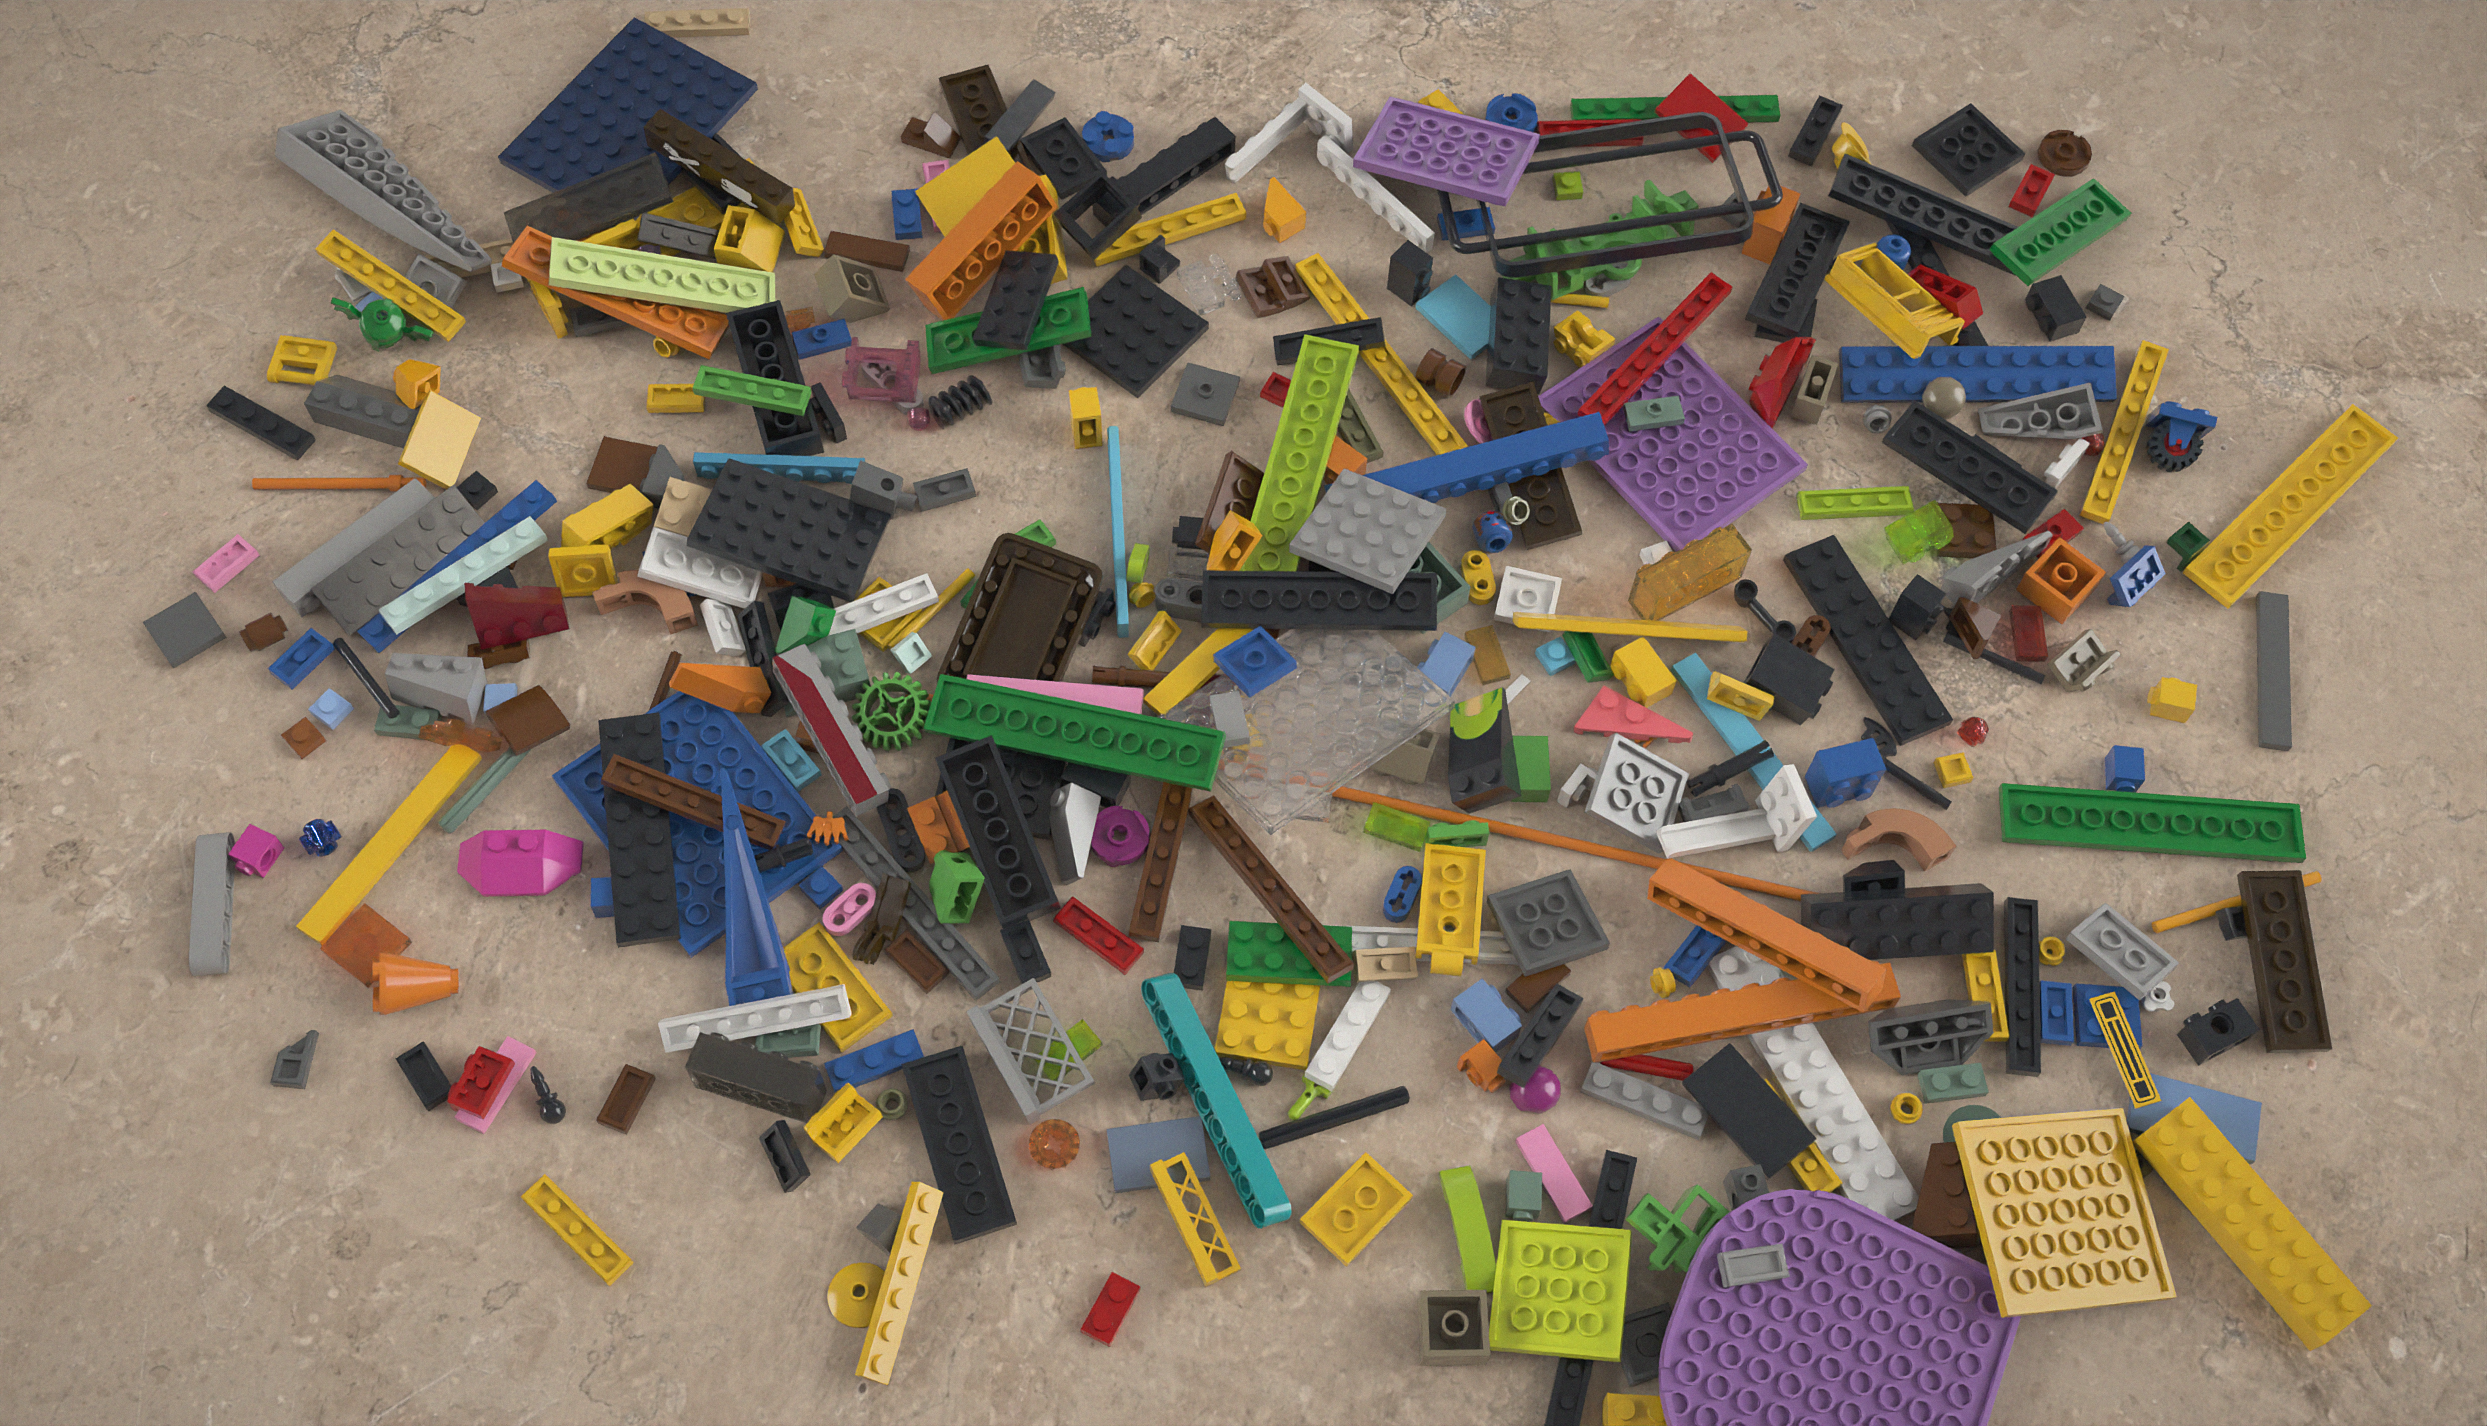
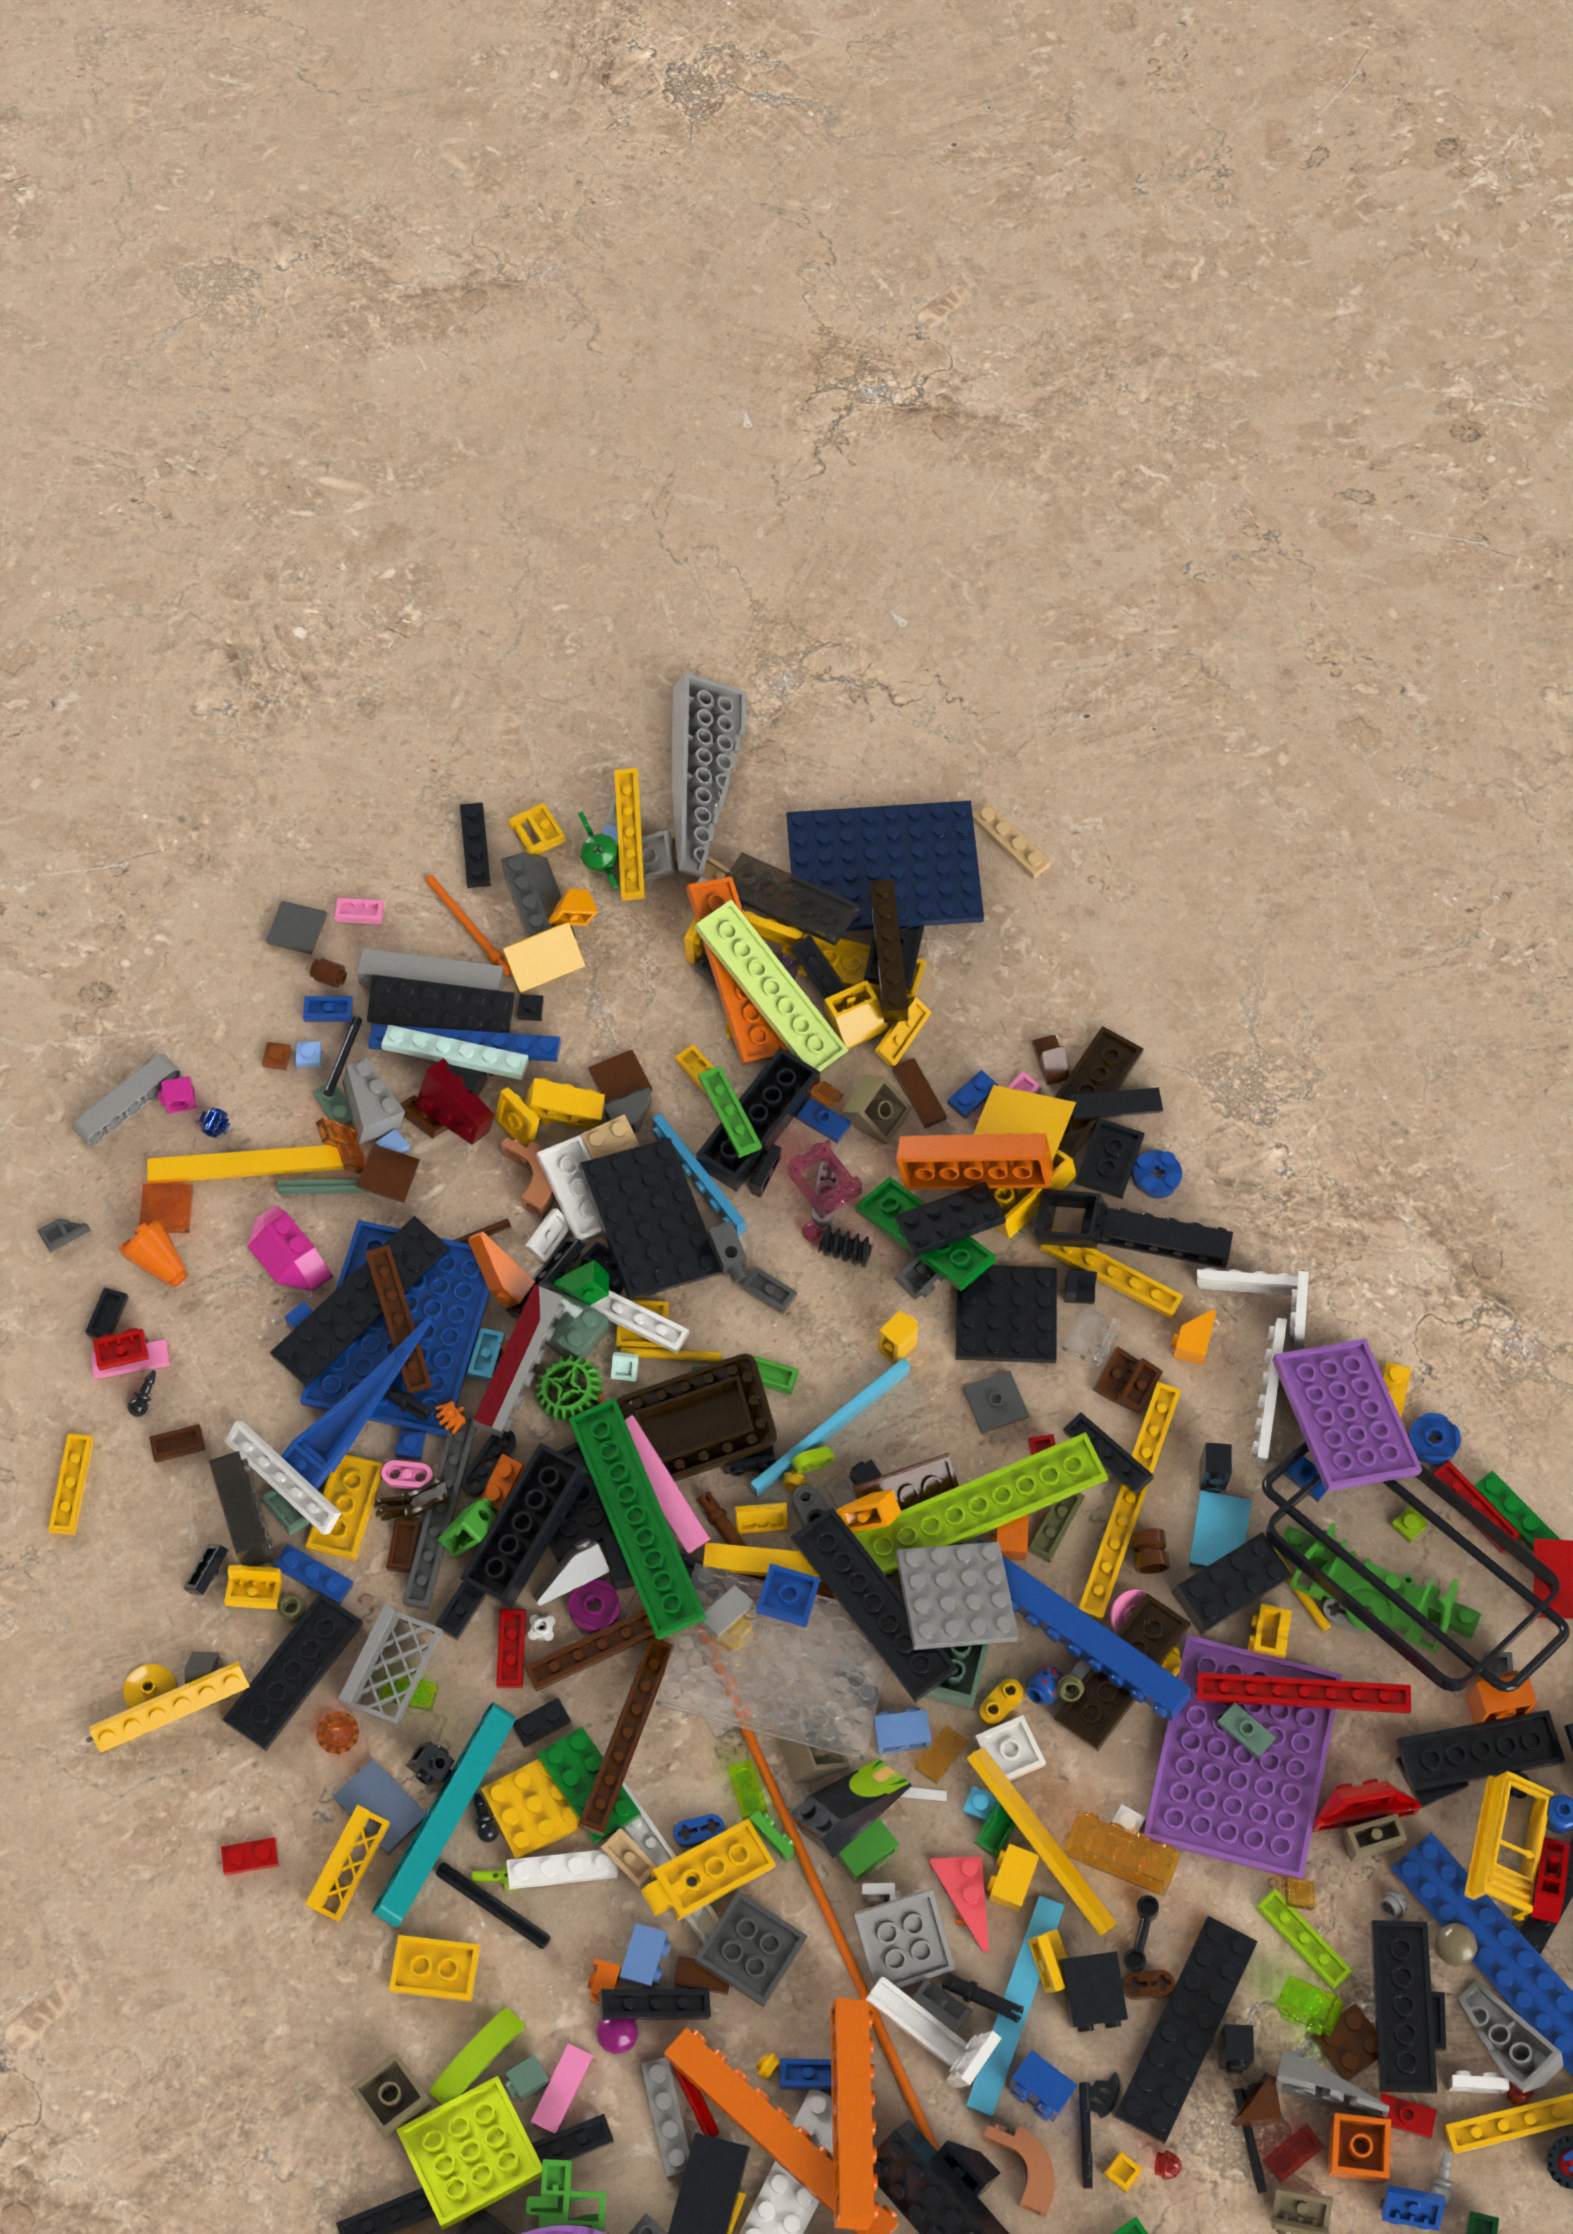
camera: 55 degrees right, 0 degrees up
(1102, 904) = (541, 1635): none -> white plate
(1817, 477) = (1299, 1893): none -> clear yellow tile

